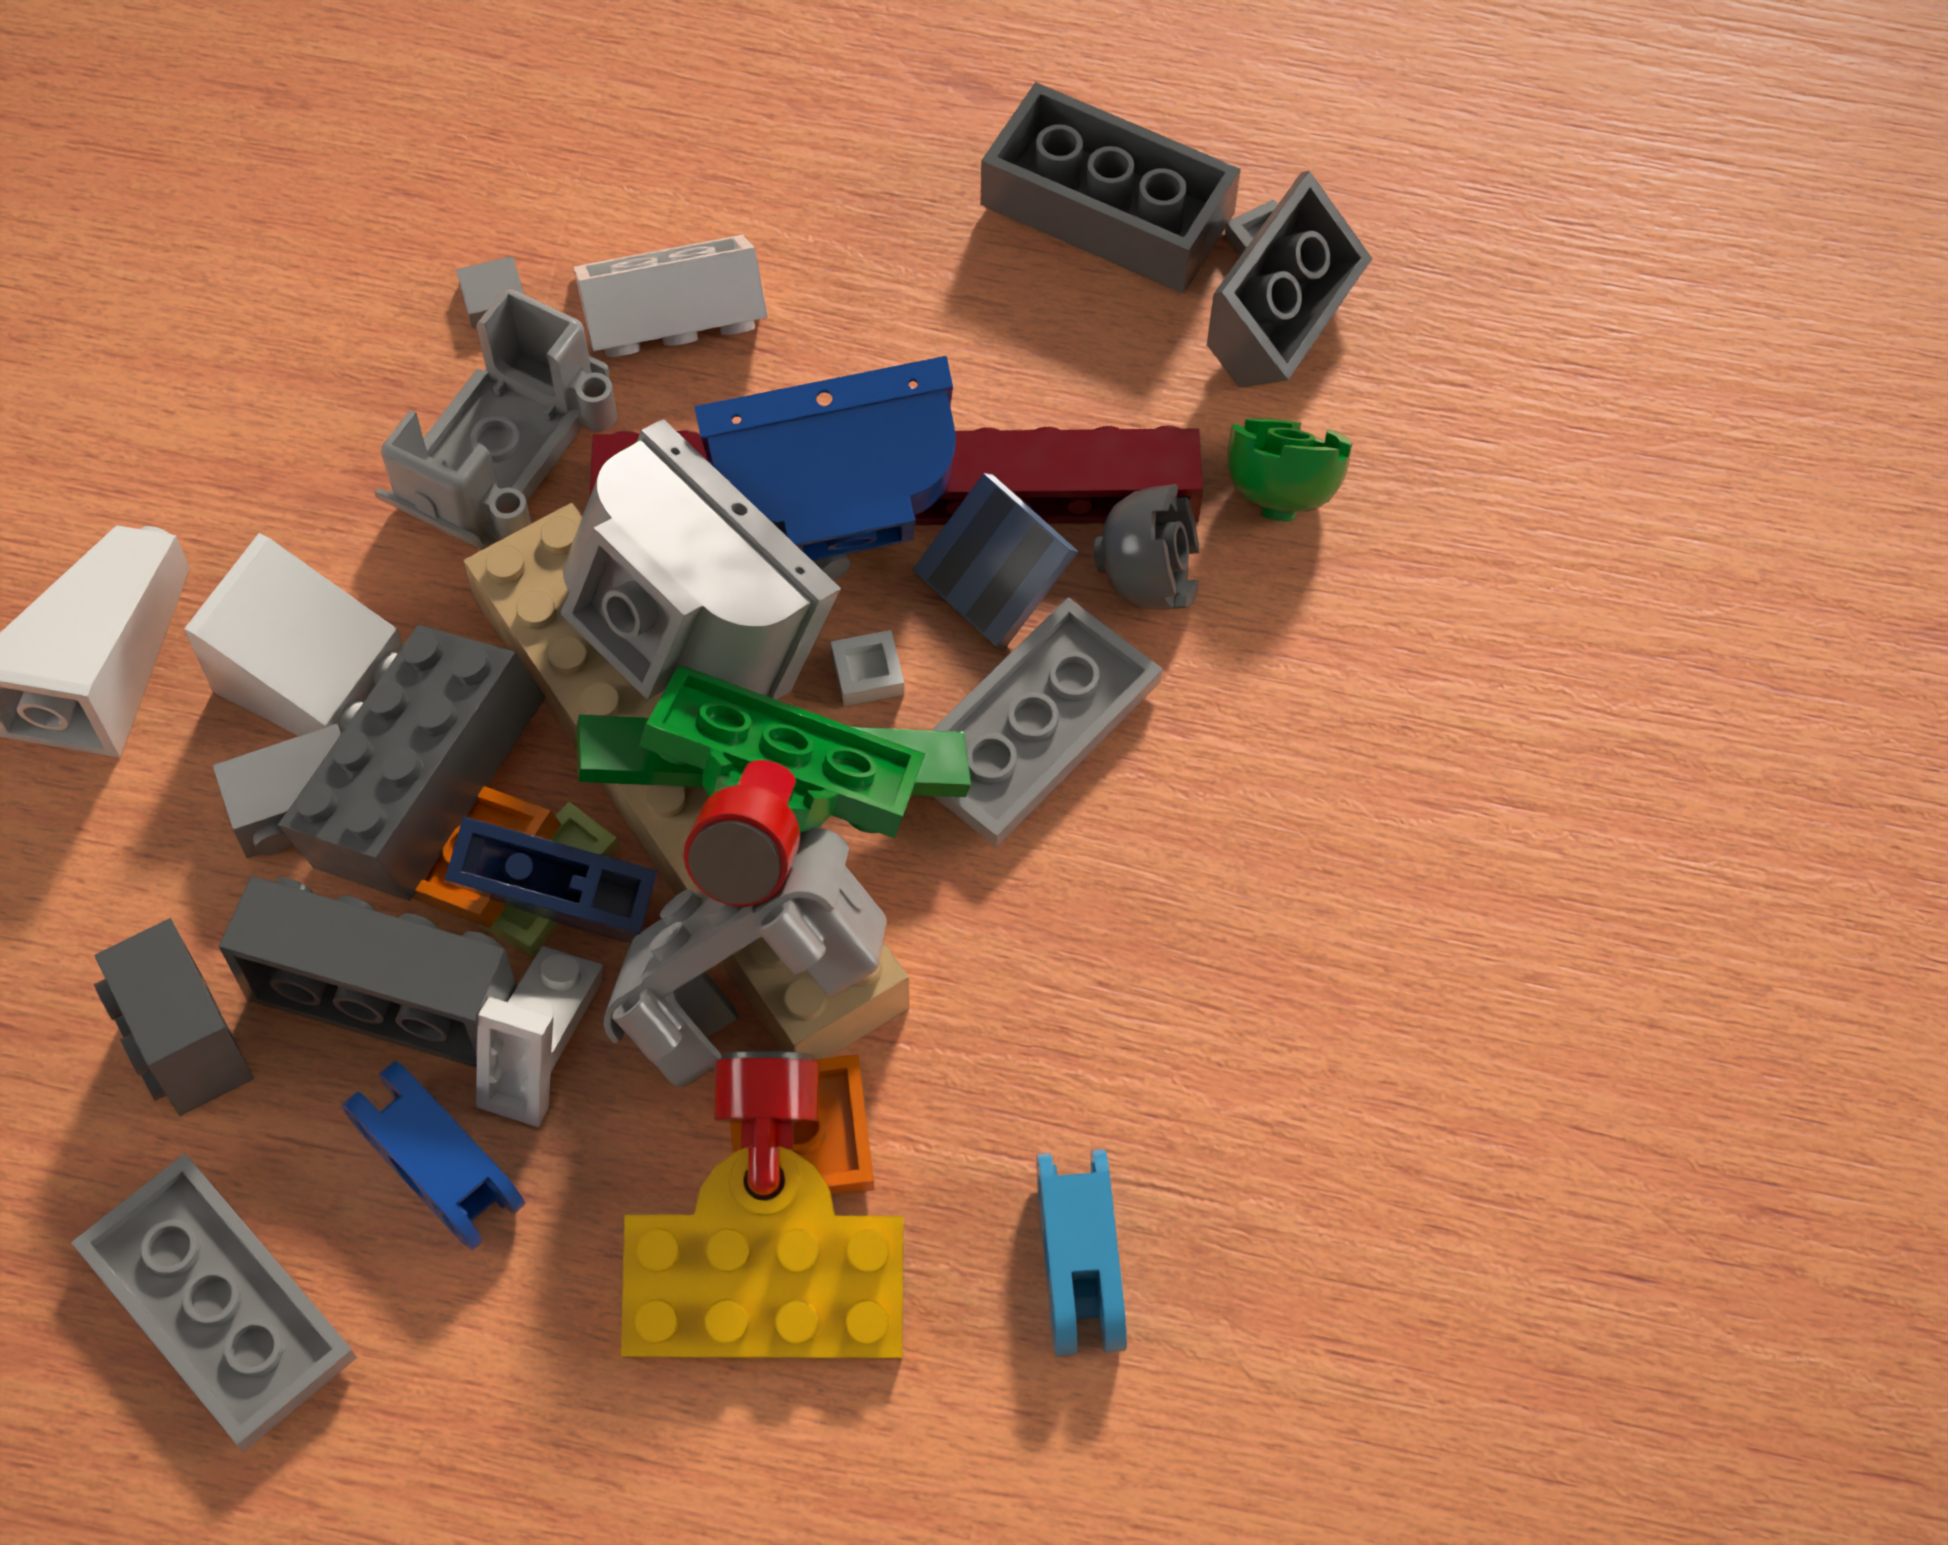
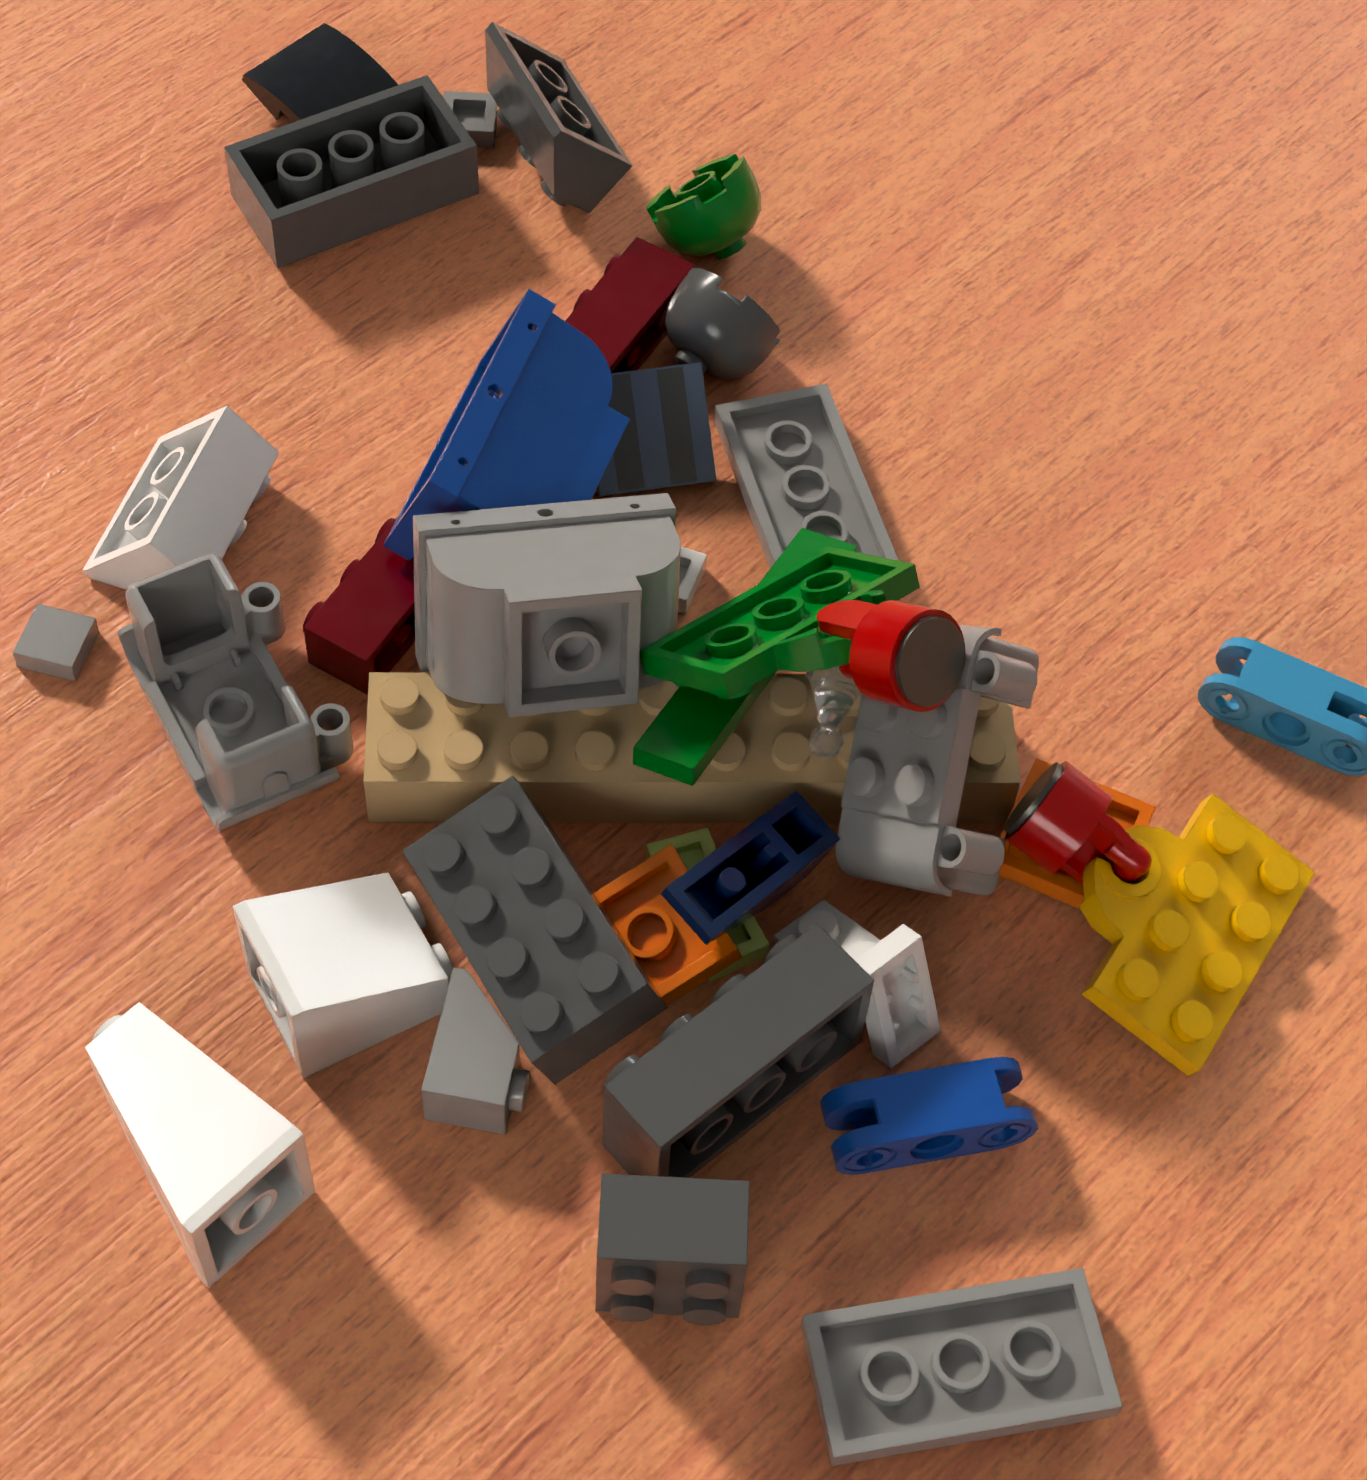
camera: 60 degrees left, 5 degrees down
(1205, 105) = (316, 75): none -> black slope

